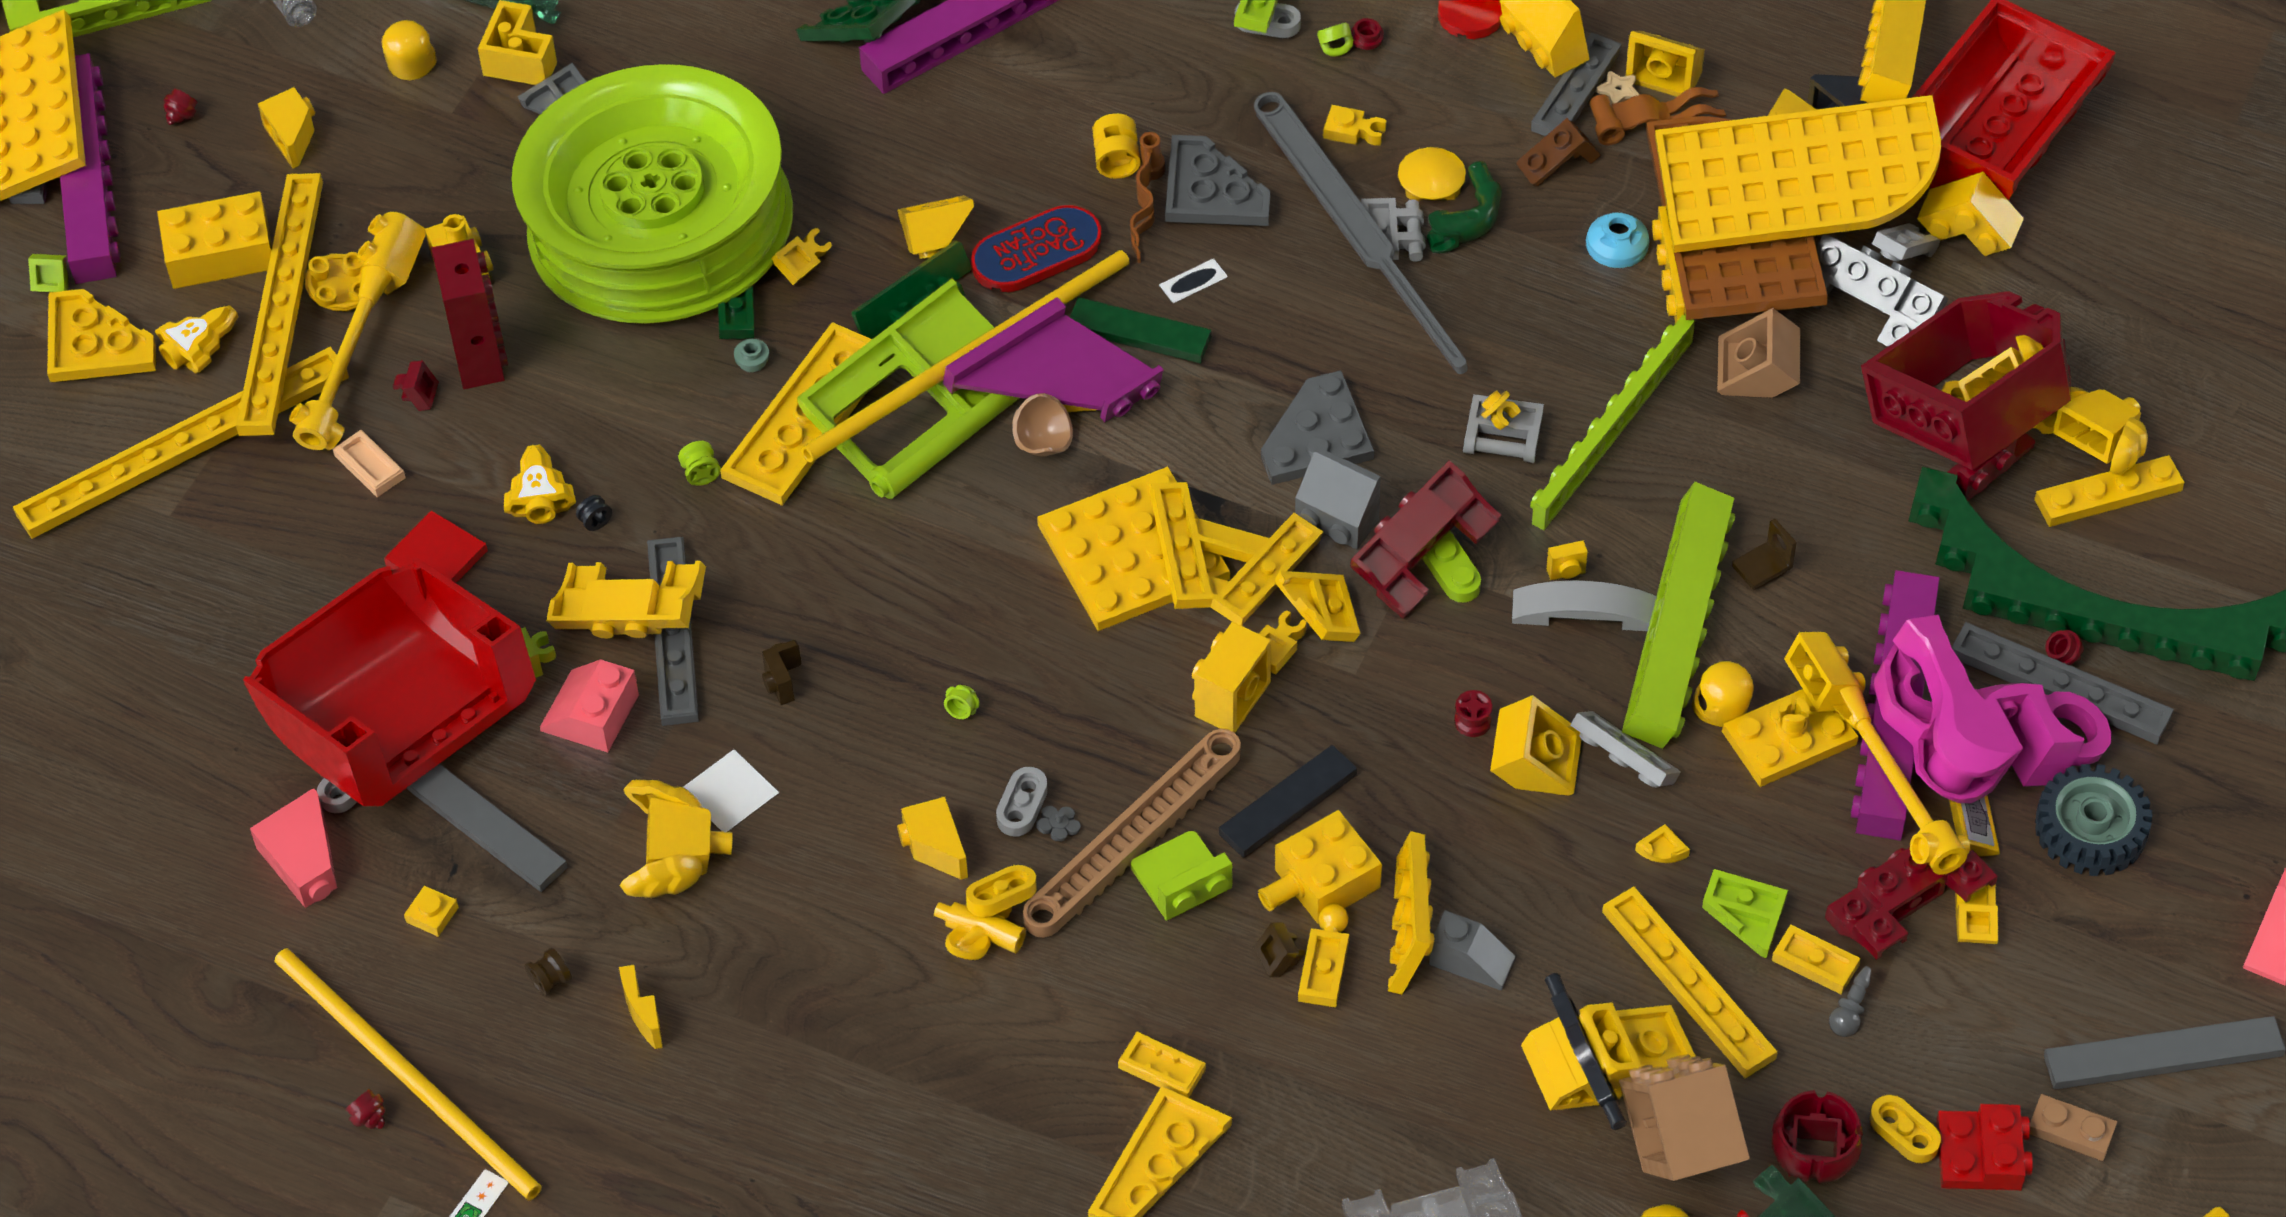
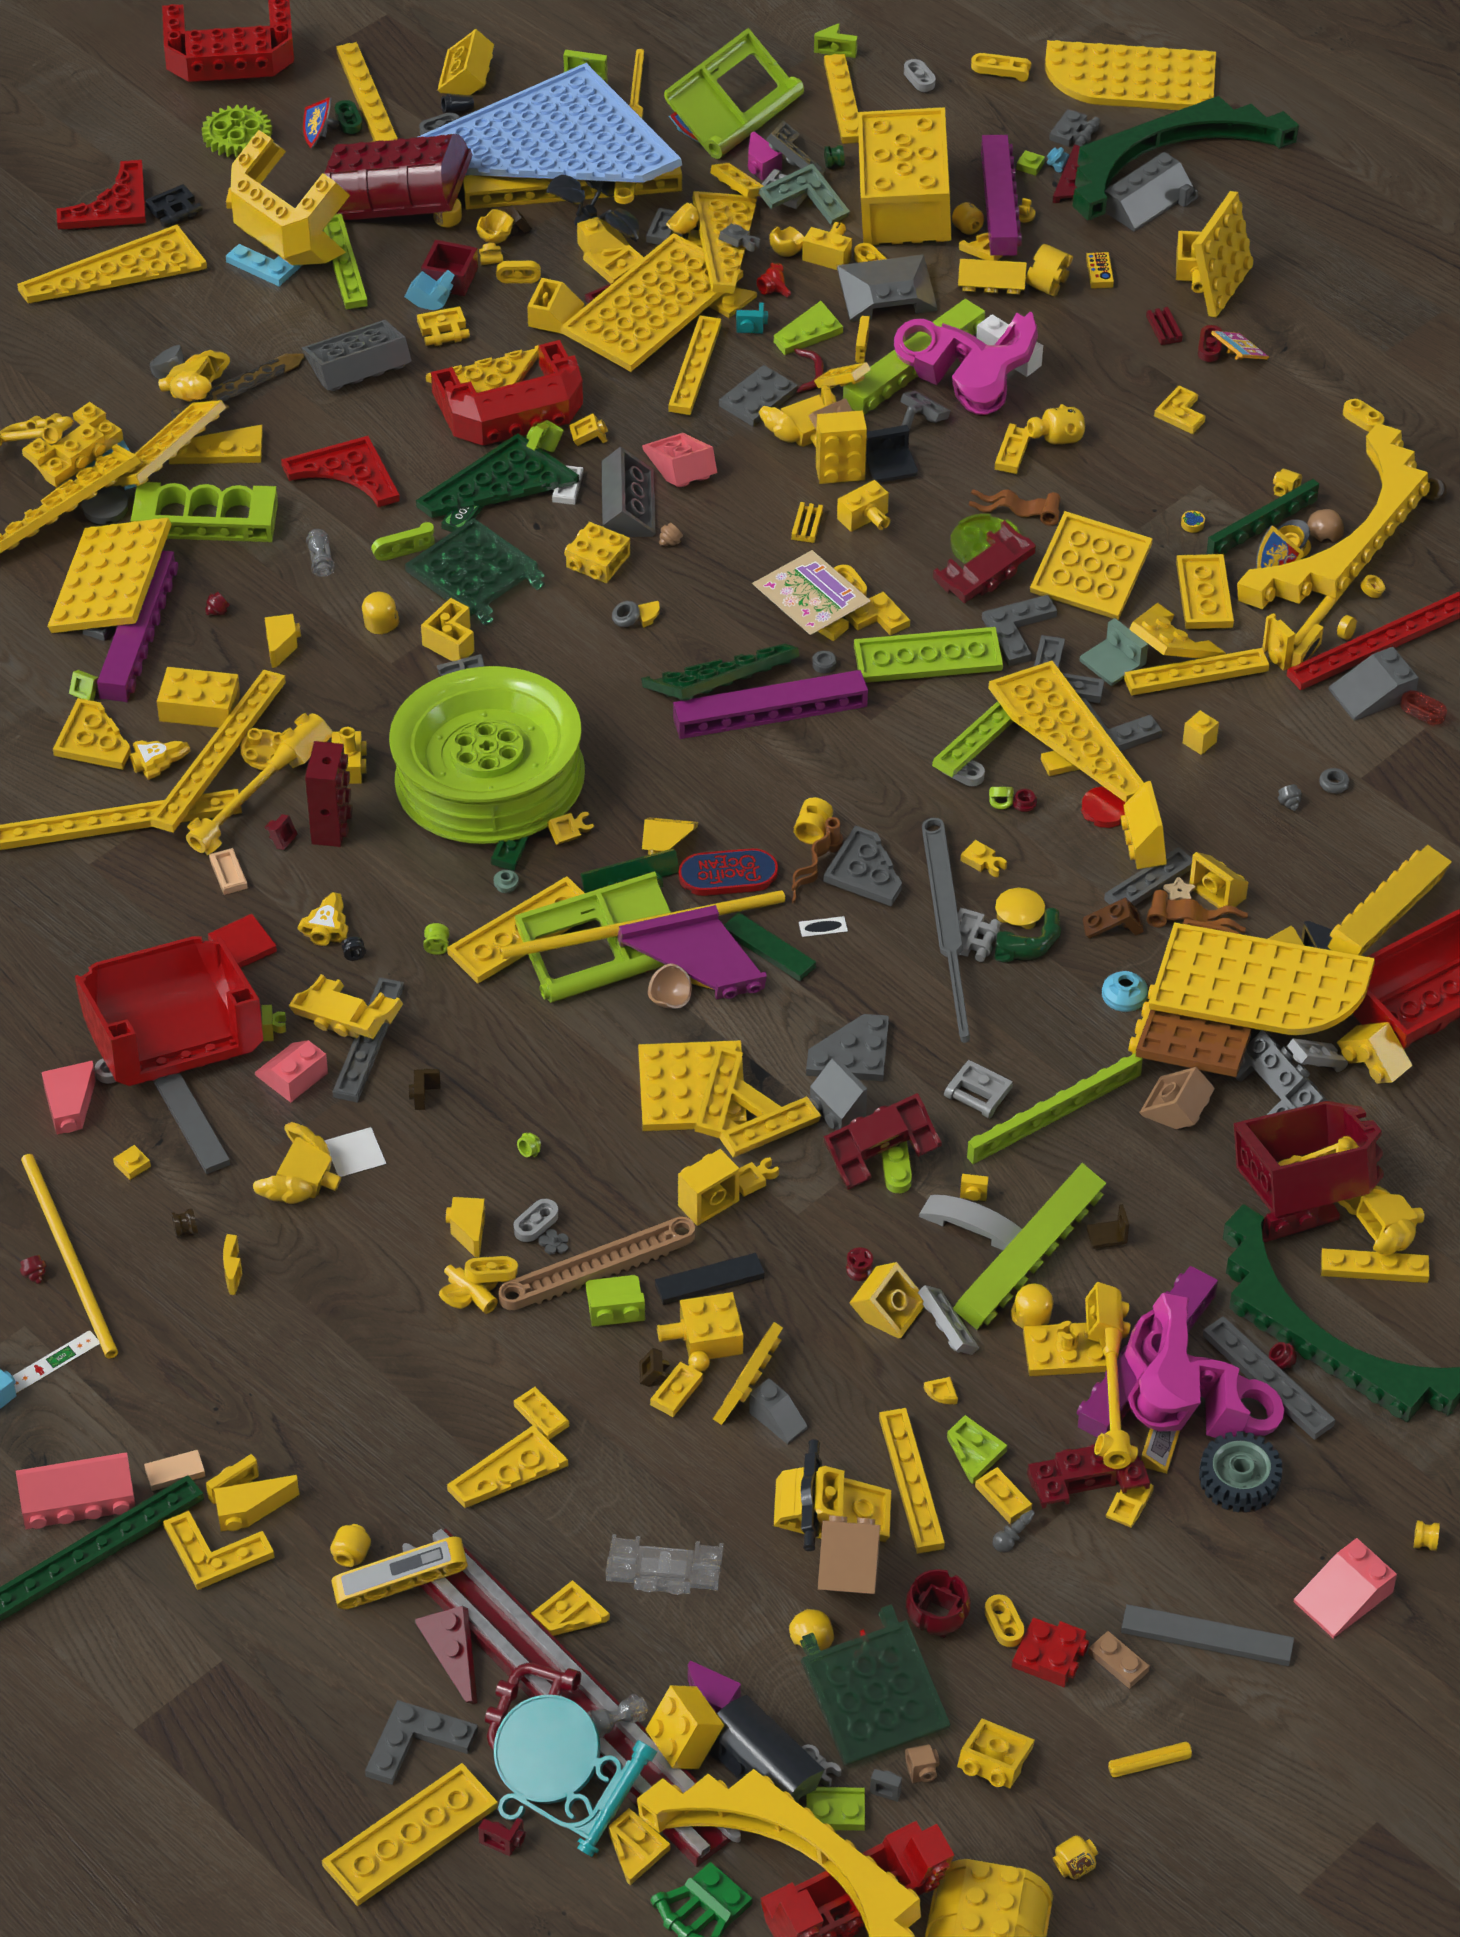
camera: 20 degrees right, 5 degrees down
(1322, 603) = (795, 1160): yellow wing -> none
(1495, 405) = (977, 1069): yellow plate -> none

